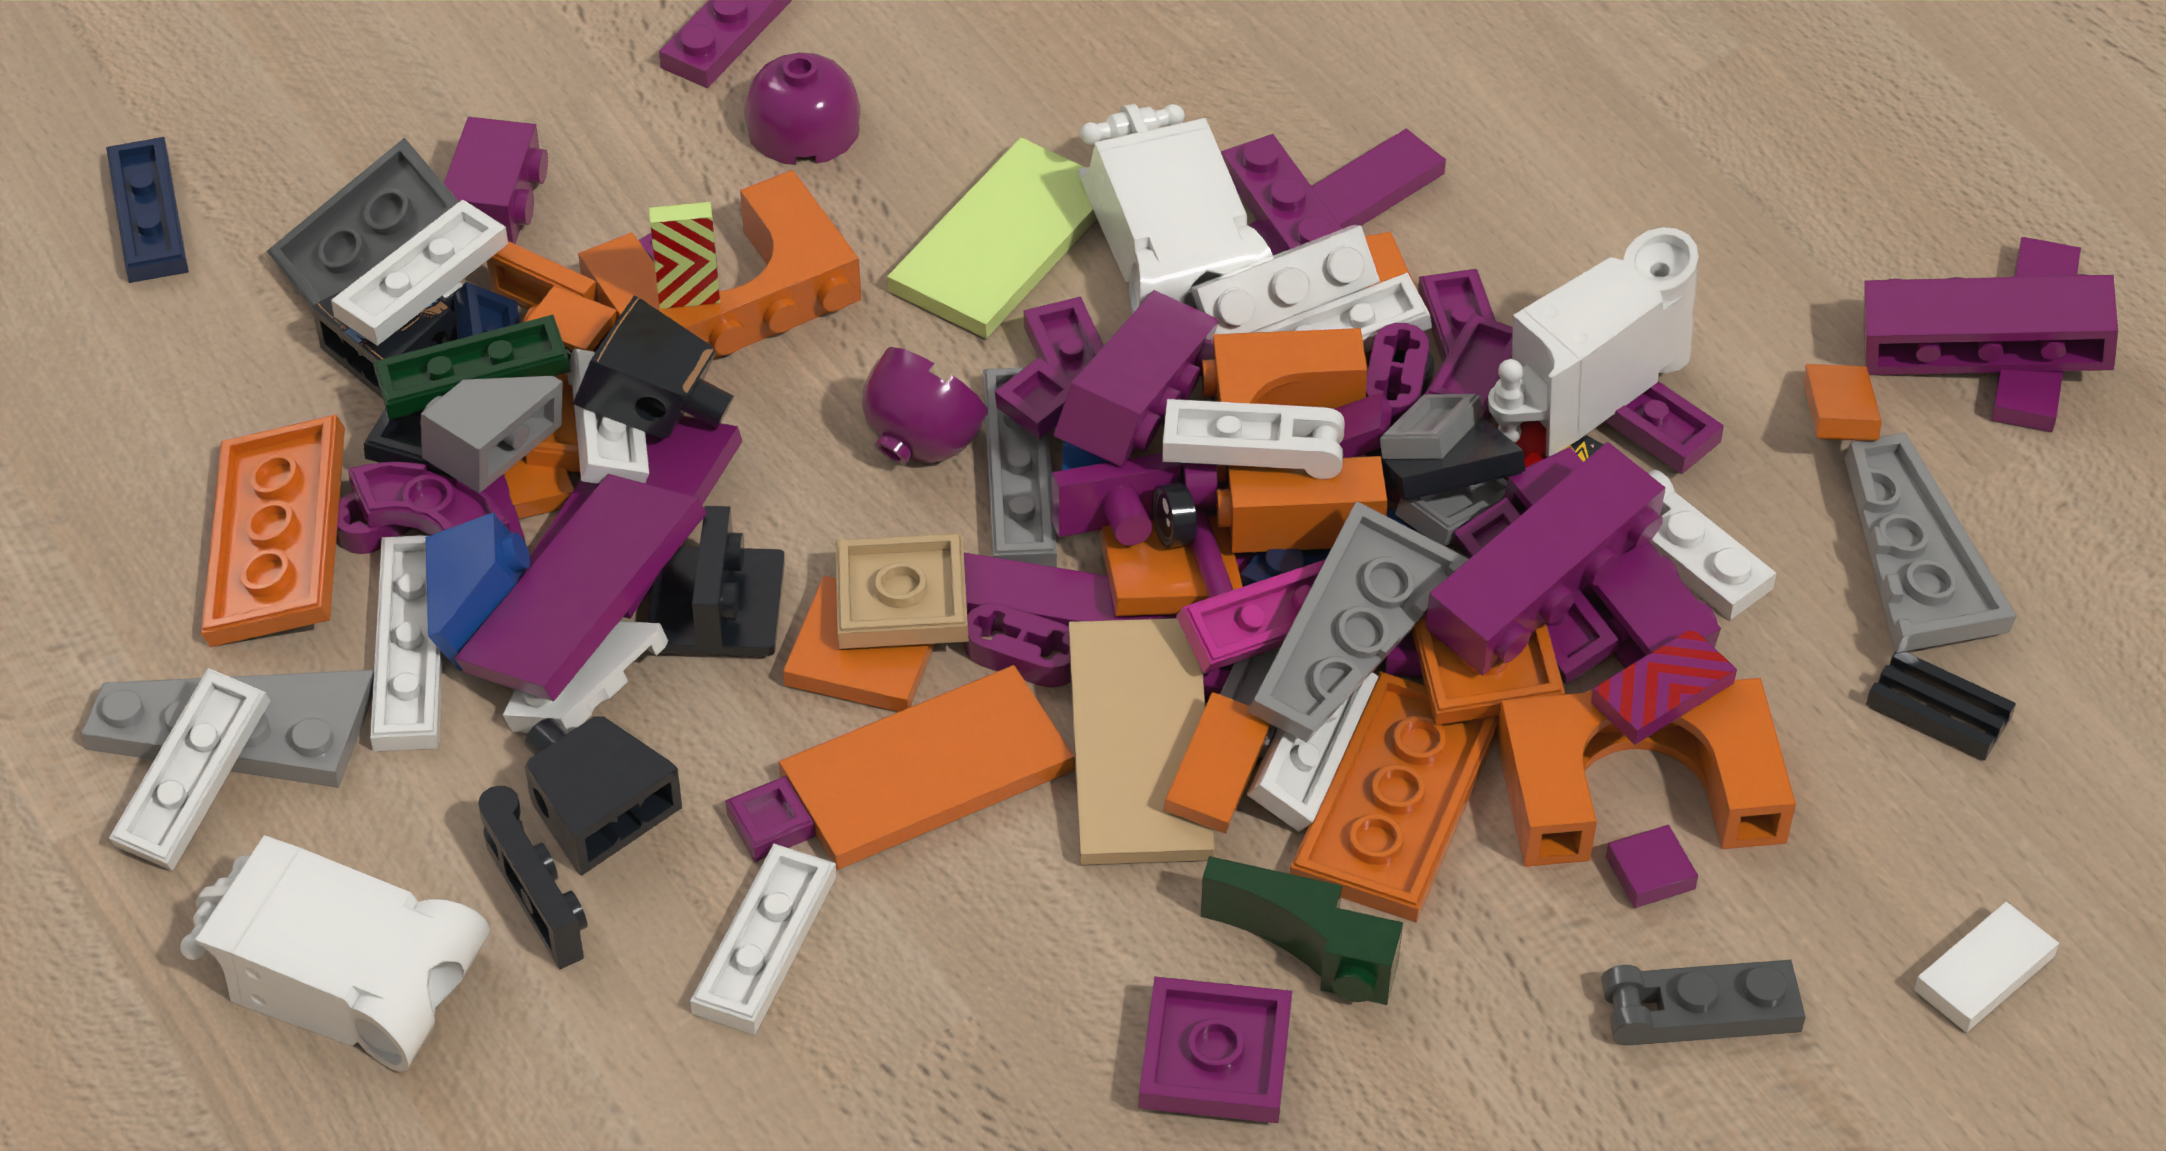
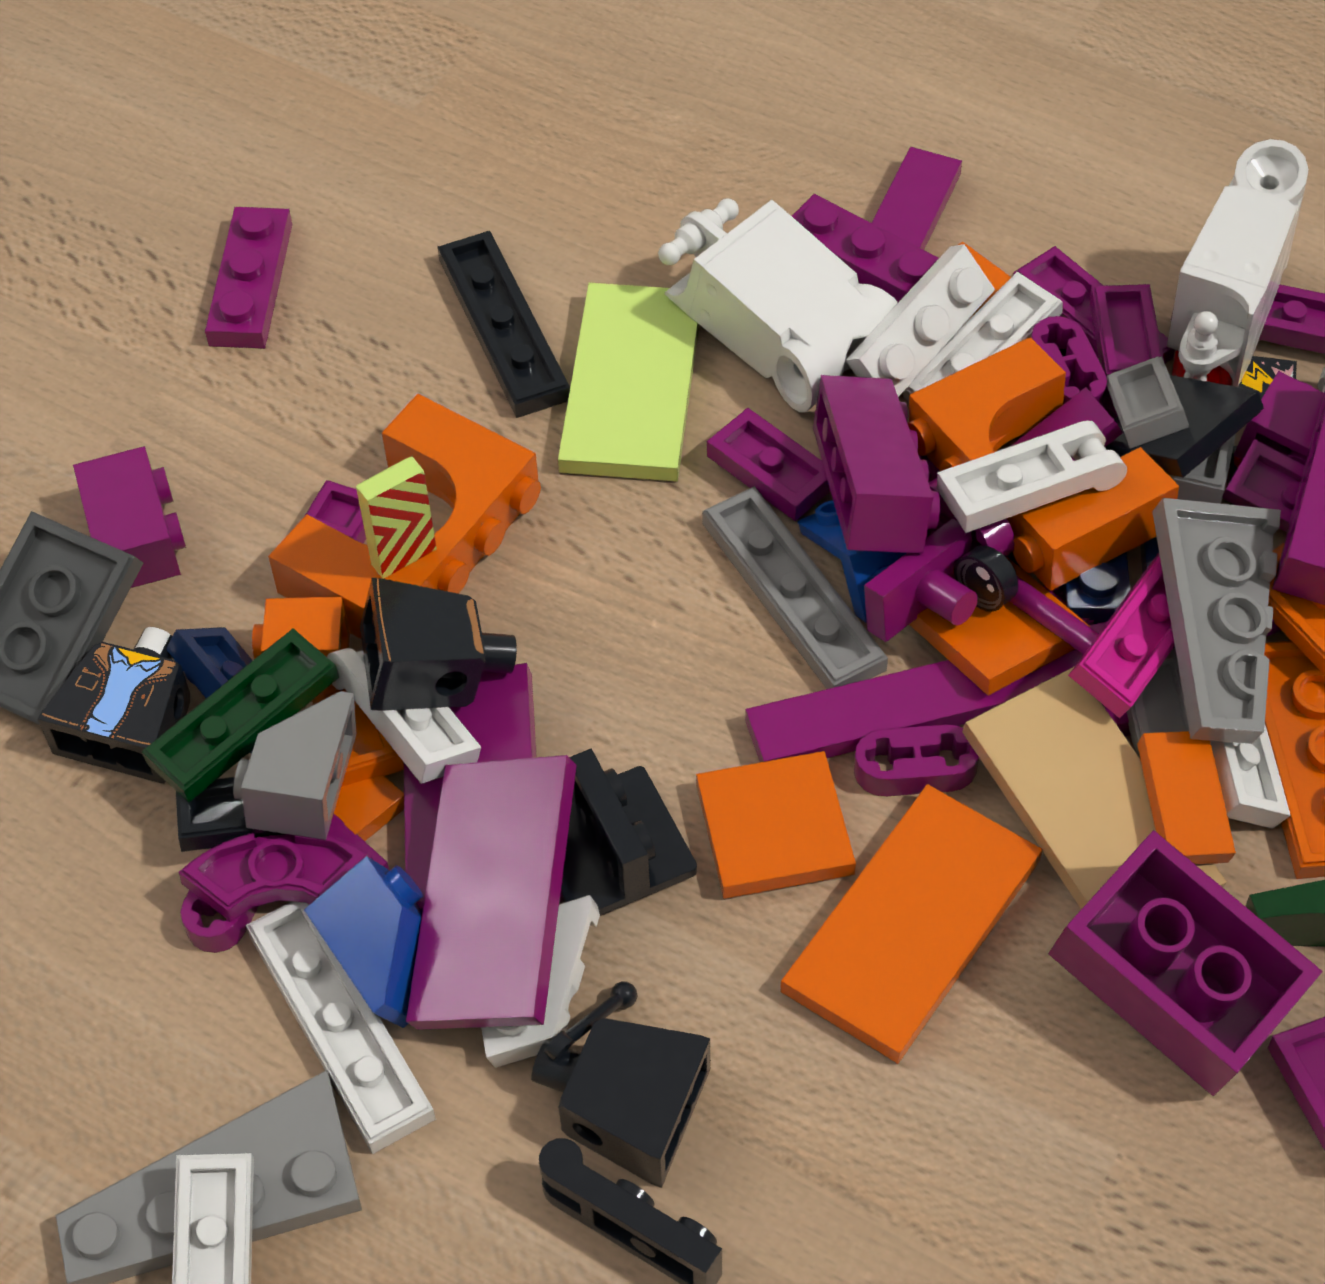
camera: 25 degrees left, 5 degrees up
(274, 531) = (134, 969): orange tile -> none
(419, 272) = (132, 641): white plate -> none
(530, 277) = (231, 599): orange tile -> none
(555, 719) = (622, 996): none -> black hinge
(763, 939) = (883, 1172): white tile -> none
(770, 817) = (805, 1042): magenta tile -> none
(802, 109) = (374, 333): magenta cylinder -> none
(901, 591) = (784, 758): tan tile -> none
(917, 410) = (682, 576): magenta cylinder -> none
(924, 144) = (504, 324): none -> black tile
(1034, 397) = (784, 518): magenta plate -> none
(1110, 881) = (1184, 963): none -> magenta brick

